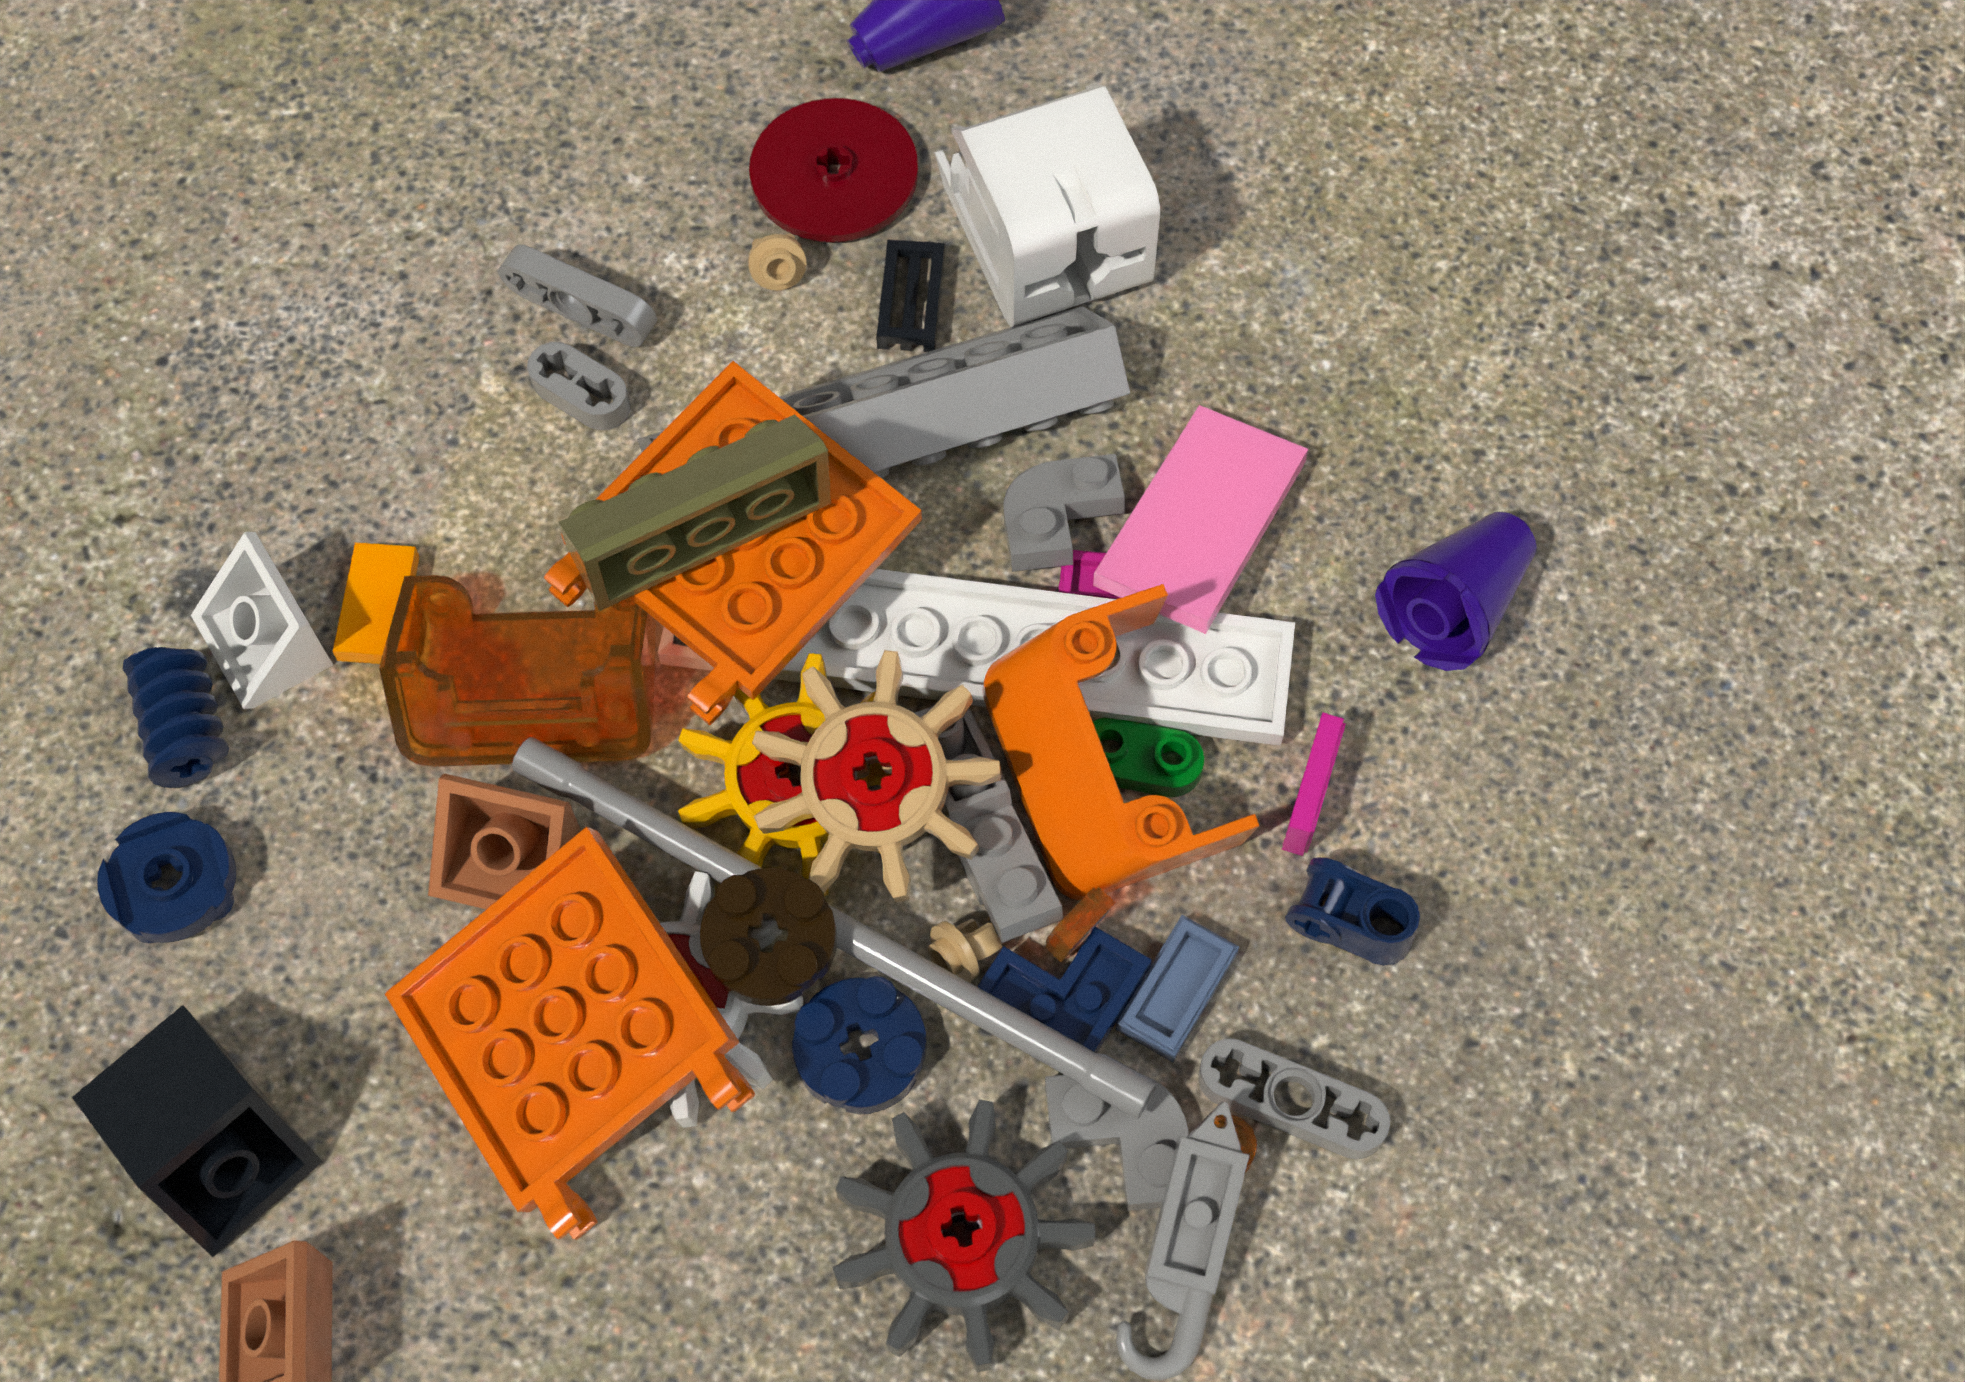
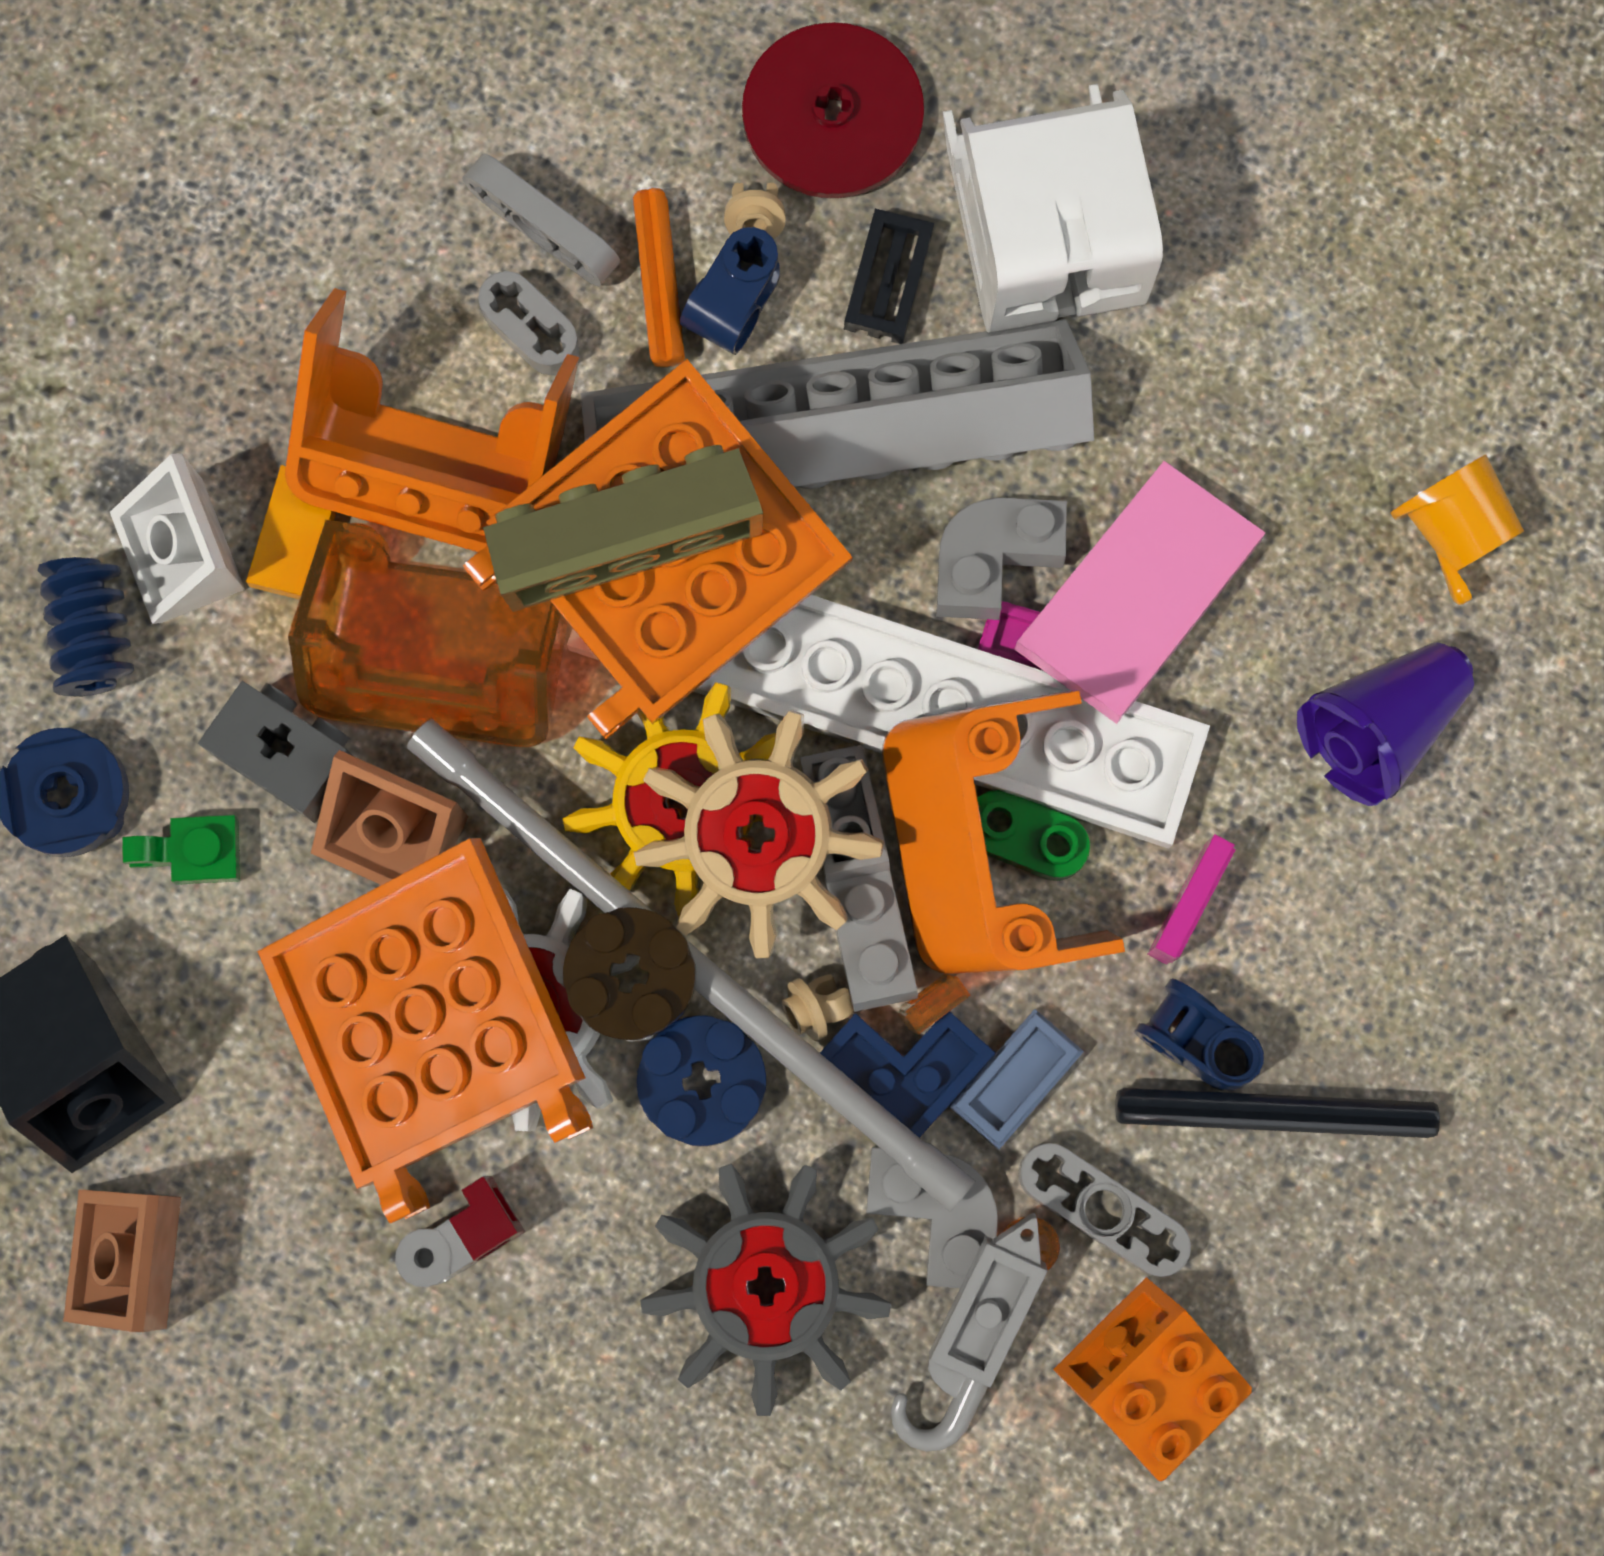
camera: 10 degrees right, 15 degrees up
(312, 912) = (197, 851): none -> green plate
(376, 796) = (250, 725): none -> dark grey brick
(467, 526) = (403, 466): none -> orange windscreen
(634, 1248) = (442, 1252): none -> leg
(692, 319) = (658, 277): none -> orange axle
(768, 323) = (729, 299): none -> dark blue piece
(1384, 1256) = (1154, 1378): none -> orange bracket
(1444, 973) = (1277, 1112): none -> black axle
(1487, 404) = (1463, 520): none -> light orange hat

